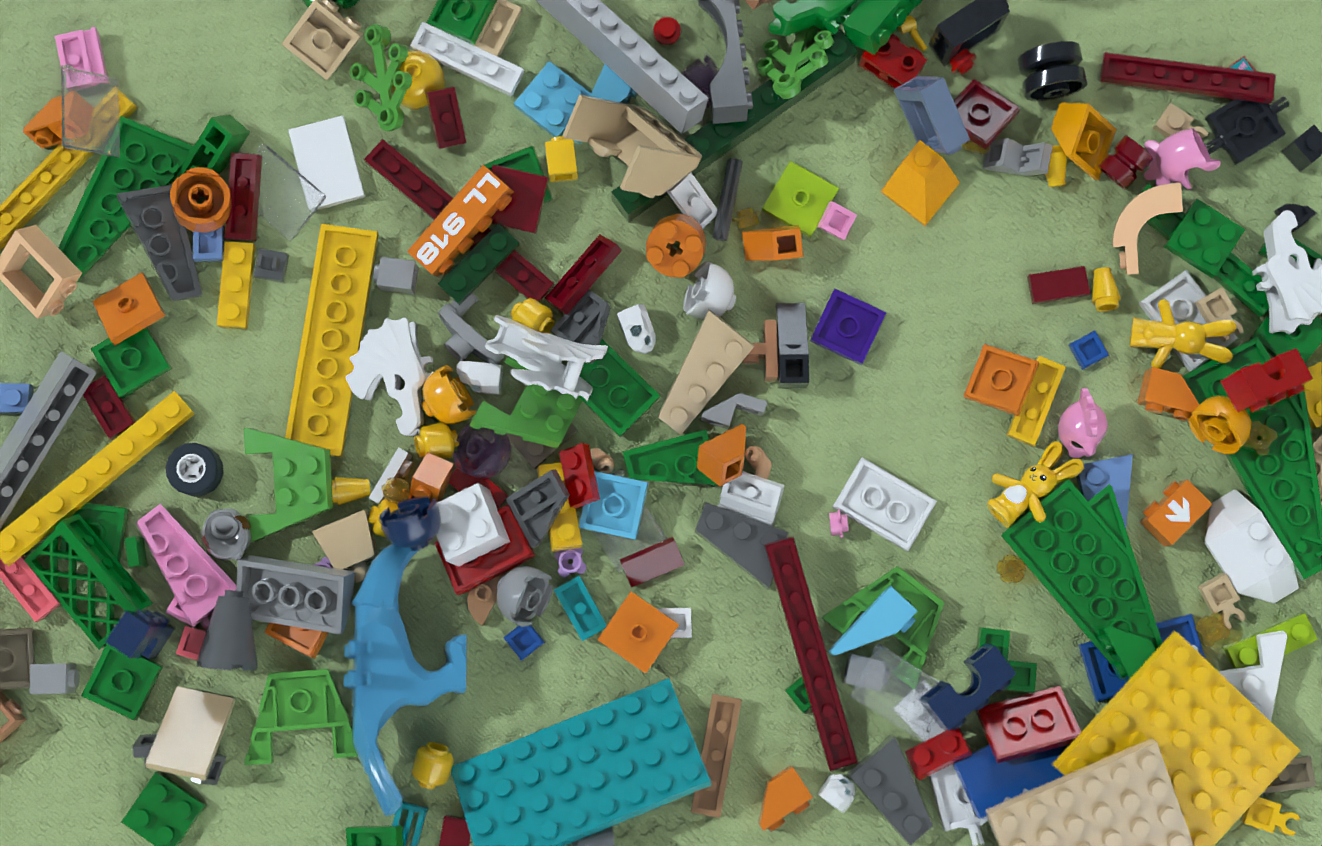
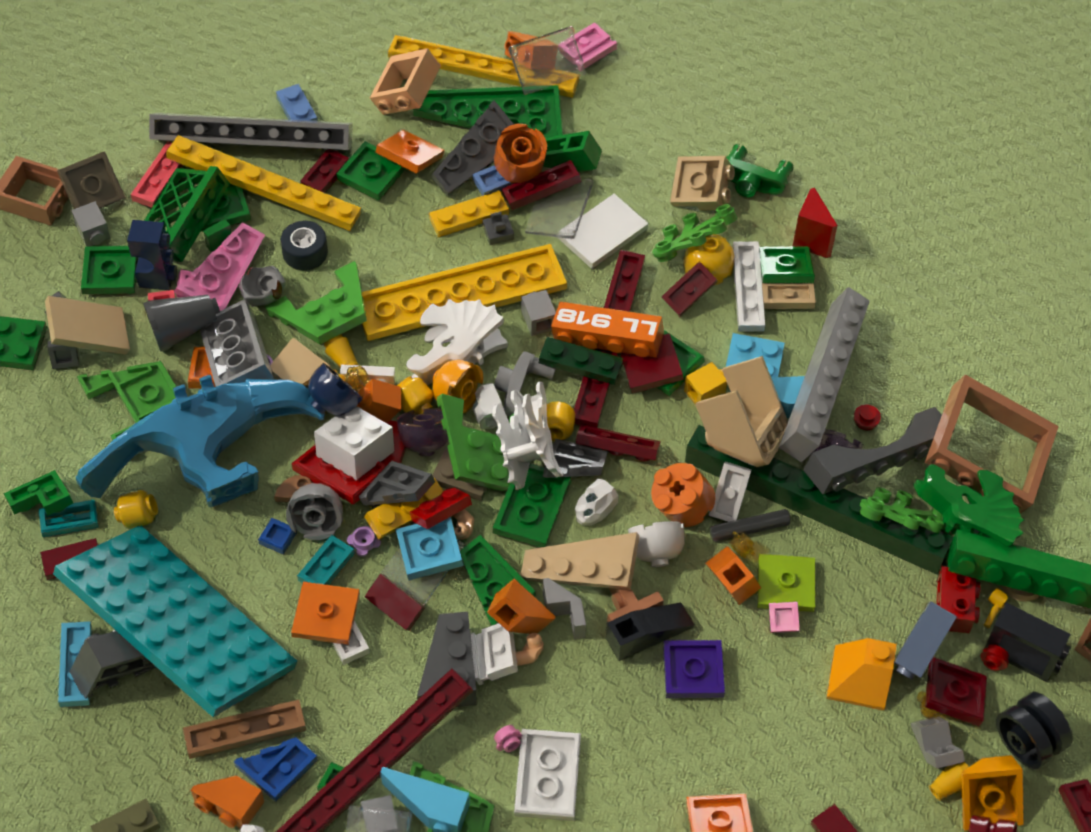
camera: 65 degrees right, 25 degrees down
(767, 741) = (278, 767): none -> blue wing

